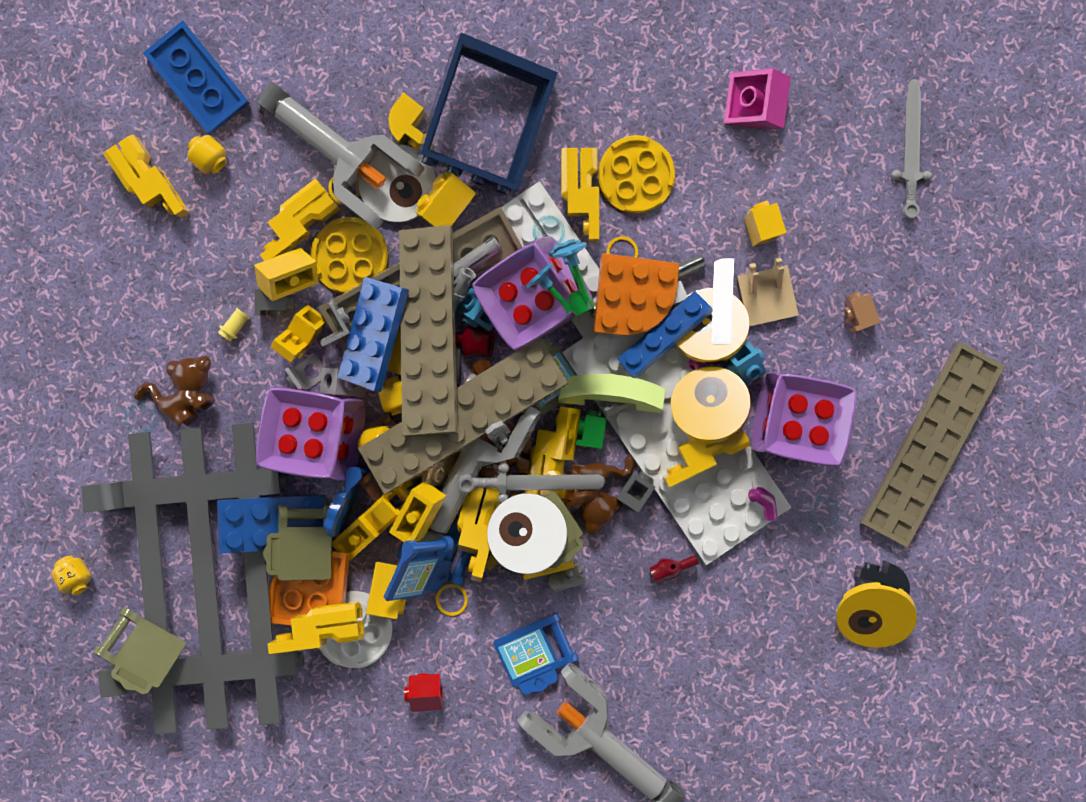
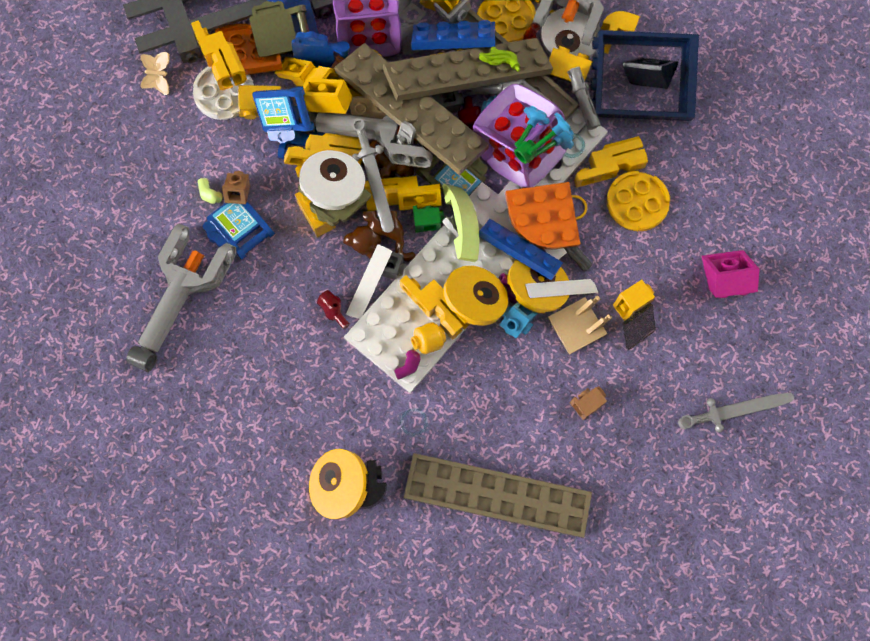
camera: 75 degrees right, 15 degrees down
(306, 707) = (154, 72): none -> tan piece
(387, 234) = (531, 32): none -> clear red arm
(424, 692) = (186, 149): red brick -> none
(425, 287) = (497, 57): none -> lime piece
(452, 613) = (264, 165): yellow piece -> none
(478, 102) = (650, 72): none -> black slope
(484, 680) = (208, 194): none -> yellowish green arm
(489, 199) = (581, 88): none -> light grey pin
(497, 644) = (236, 182): none -> medium nougat brick
(567, 578) = (304, 233): light grey piece -> none
(653, 519) = (369, 282): none -> white sticker
(743, 471) = (428, 338): none -> yellow head
(795, 228) = (639, 326): none -> clear smoke piece
(804, 419) = (487, 369): medium lavender piece -> none

